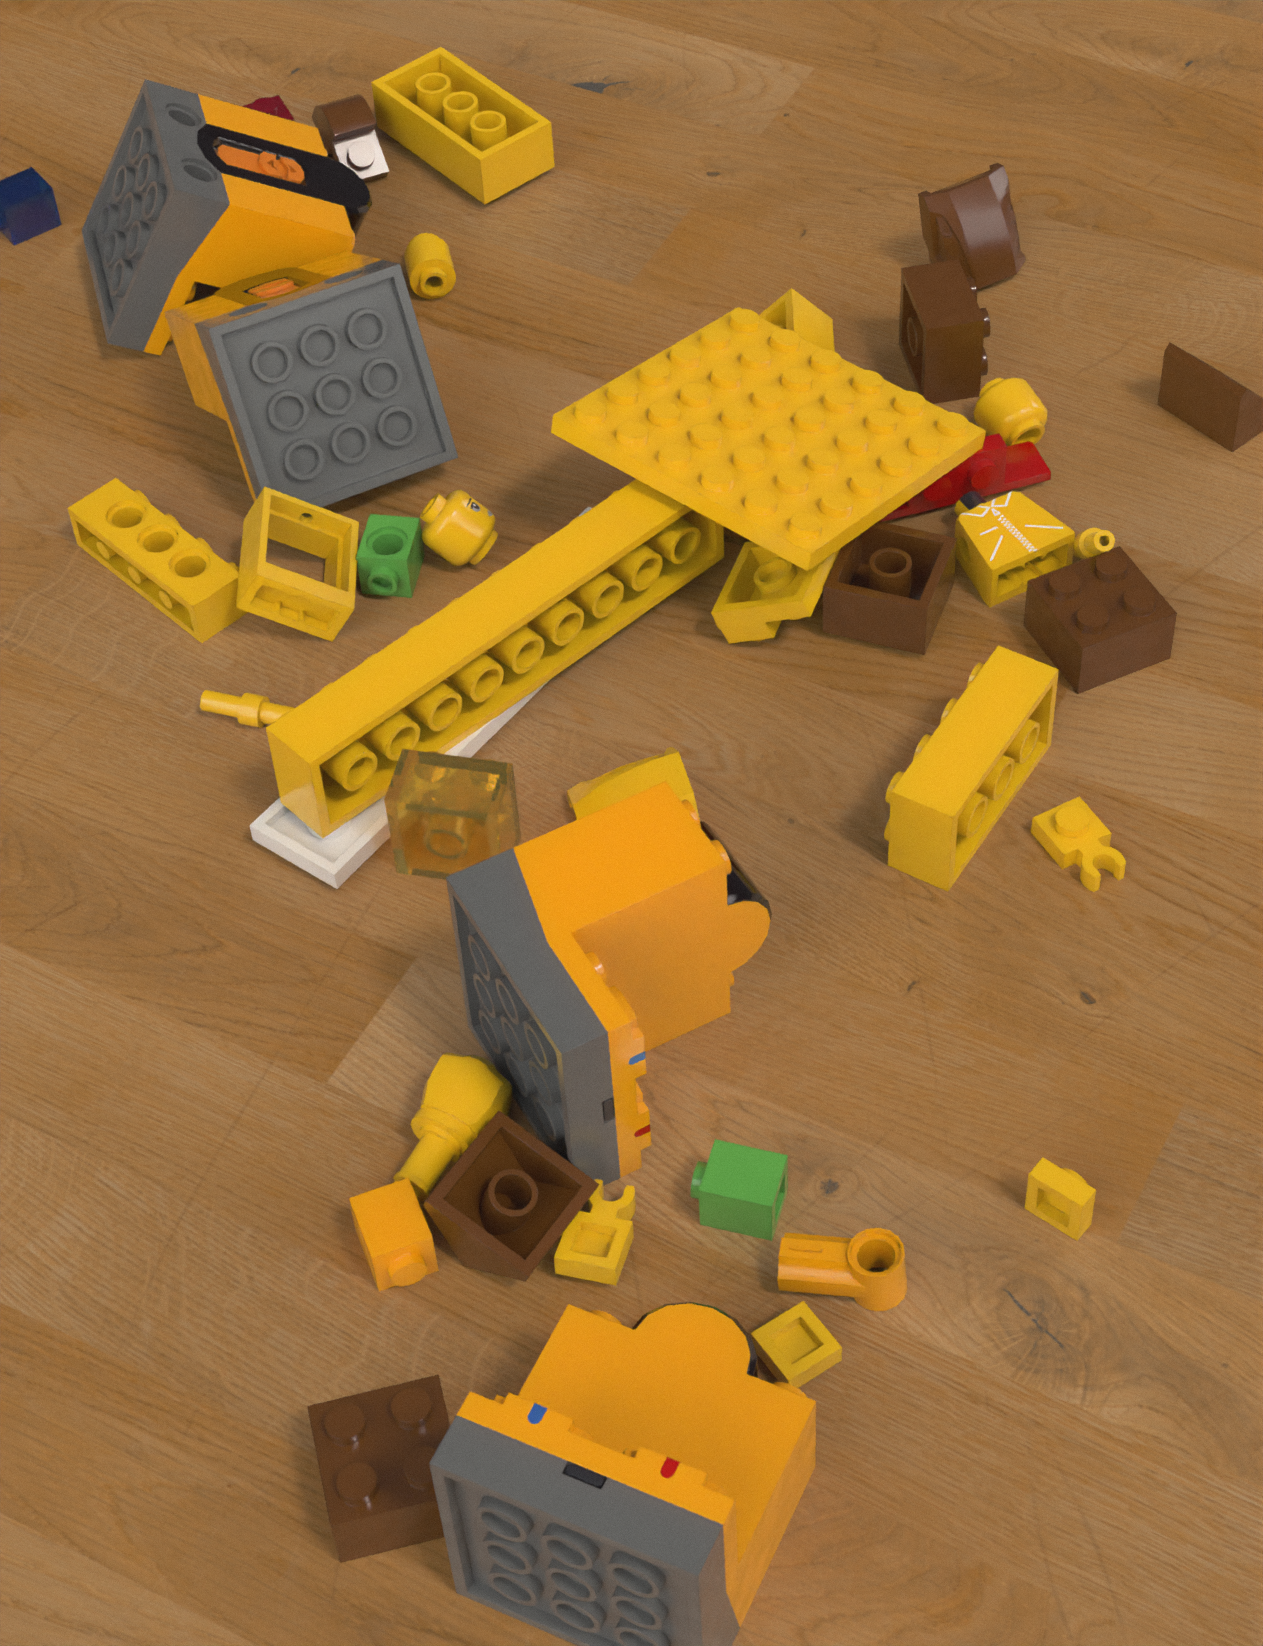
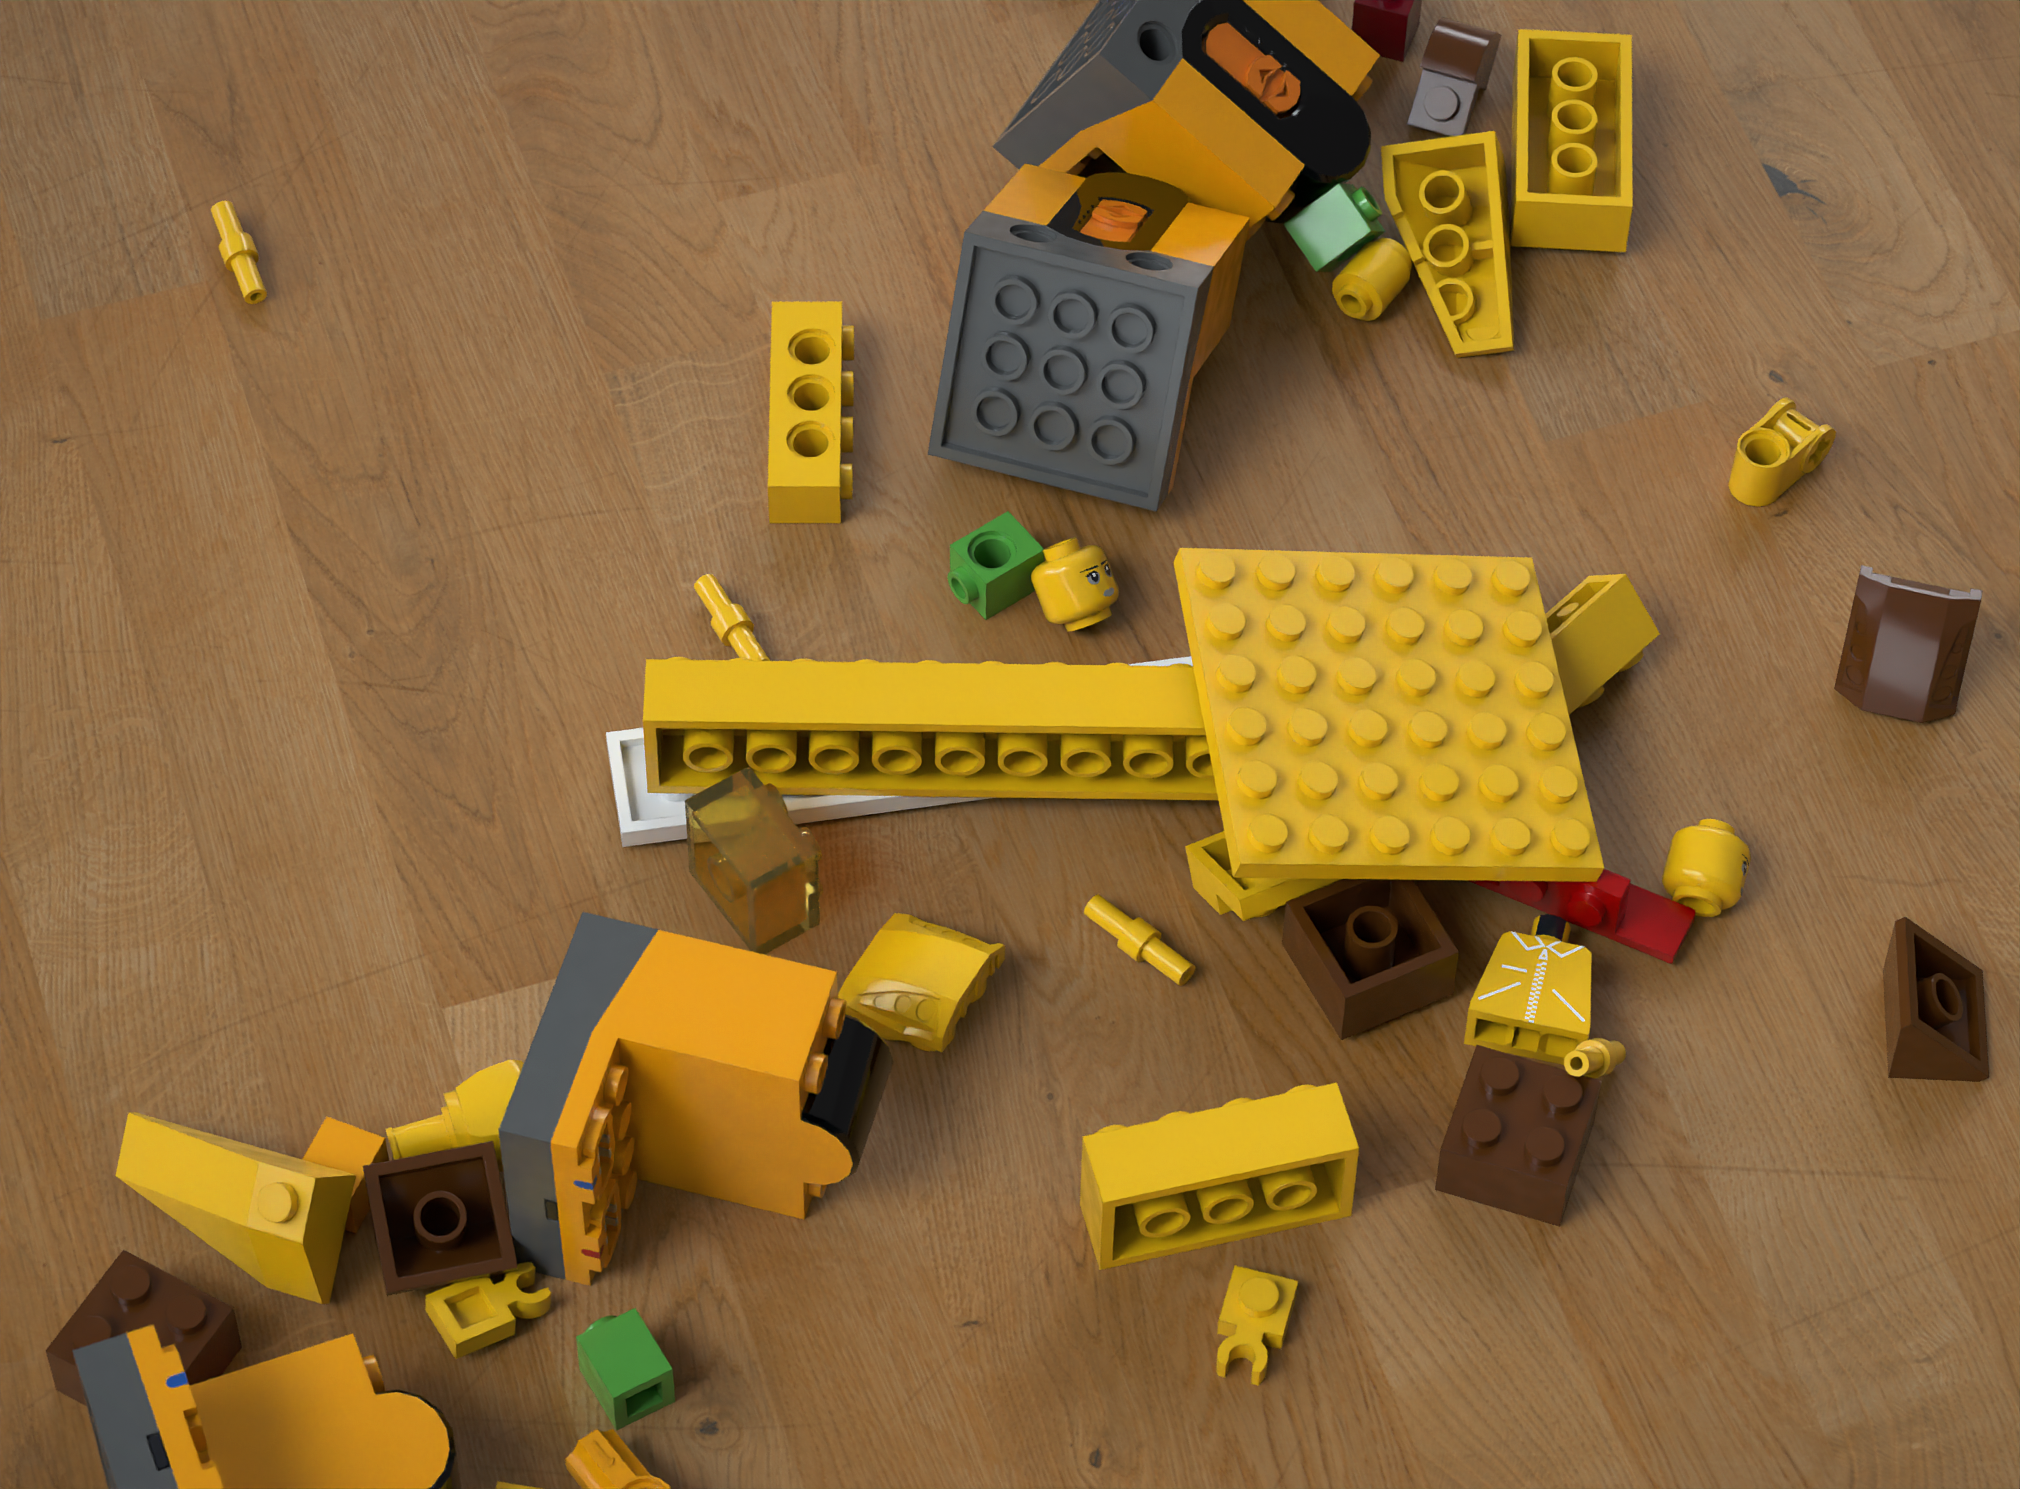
camera: 40 degrees right, 5 degrees up
(286, 595) = (857, 547): yellow window -> none
(356, 1306) = (252, 1205): none -> yellow wedge
(385, 235) = (1336, 226): none -> bright green brick
(442, 196) = (1456, 227): none -> yellow wedge
(738, 691) = (1139, 940): none -> yellow bar
(771, 202) = (1777, 454): none -> yellow piece
(942, 331) = (1731, 731): reddish brown brick -> none

